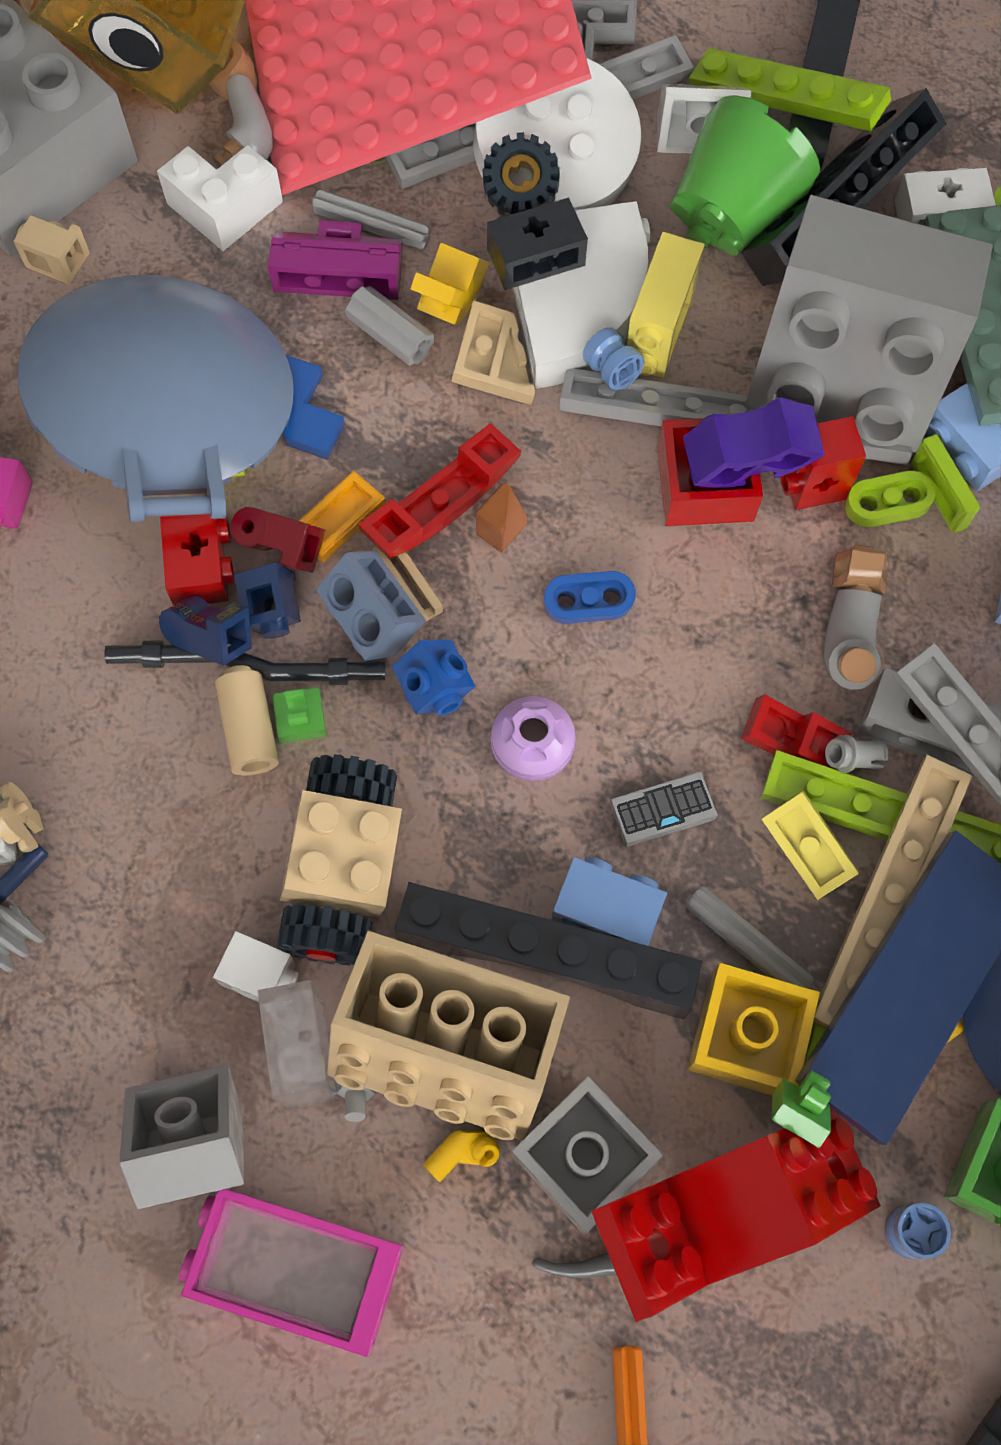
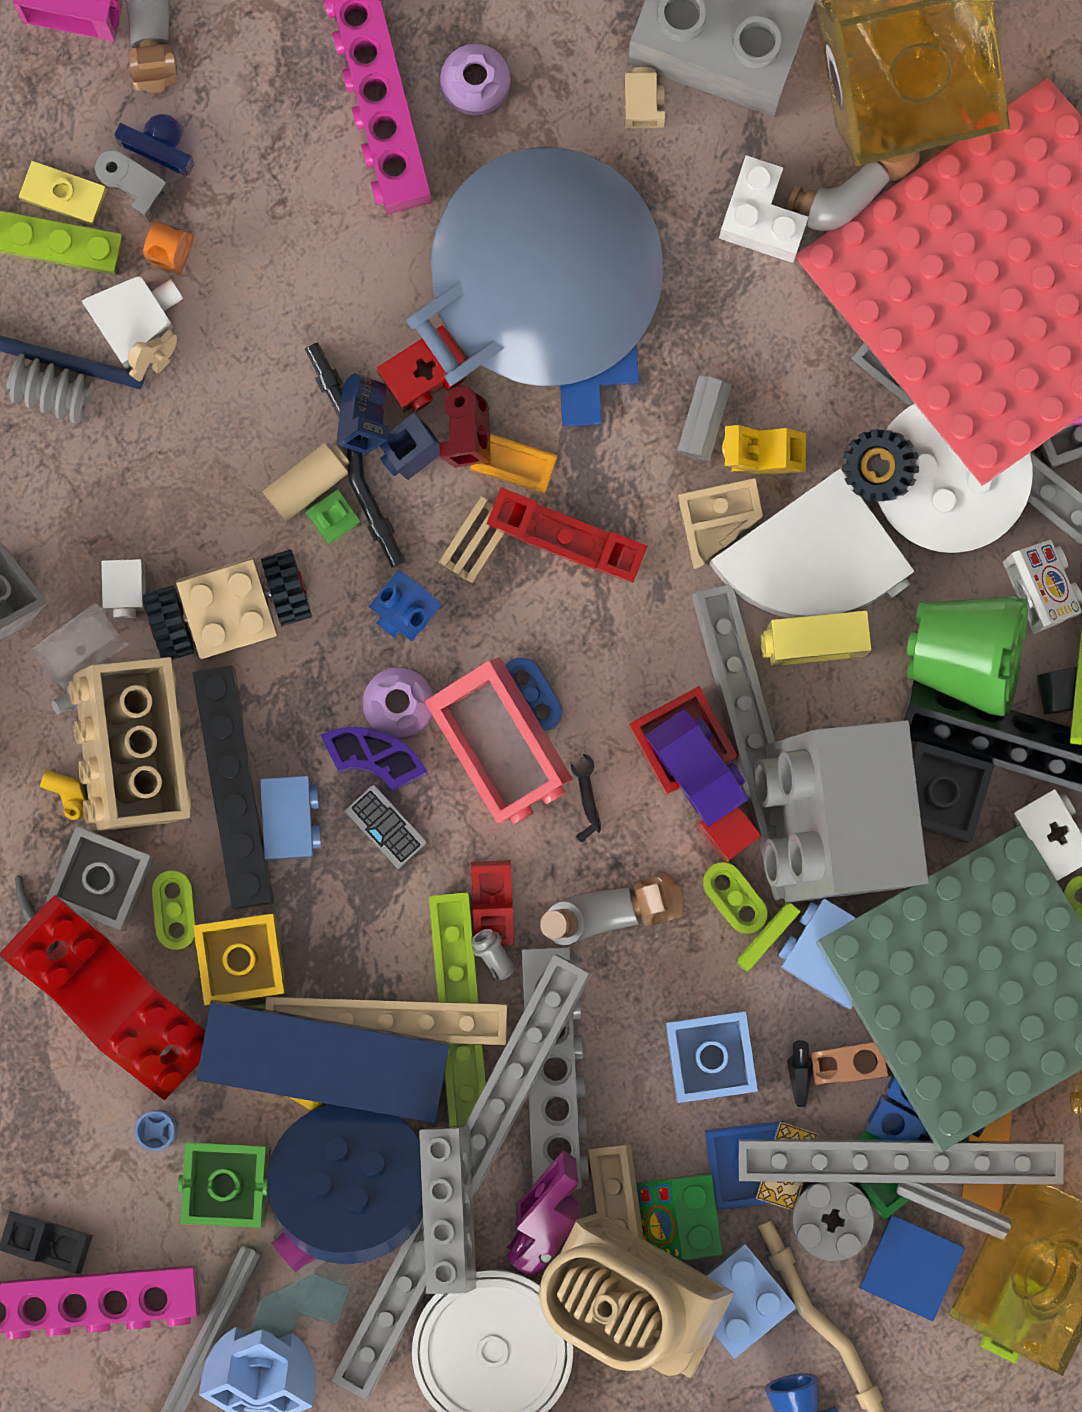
camera: 65 degrees right, 15 degrees up
(335, 261) = (736, 333): magenta piece -> none
(370, 605) = (440, 529): sand blue brick -> none
(372, 218) = (805, 349): light grey axle -> none
(500, 518) = (568, 594): dark orange slope -> none
(536, 243) = (796, 504): black brick -> none
(580, 775) = (374, 752): none -> dark purple brick
(617, 362) = (747, 620): medium blue wheel -> none
(628, 643) = (499, 742): none -> window
(657, 1086) = (173, 910): none -> lime plate
(720, 595) = (587, 801): none -> black piece
(746, 939) = (311, 933): light grey axle -> none
(804, 1108) = (190, 1010): bright green tile -> none
(810, 845) = (404, 947): light yellow plate -> none

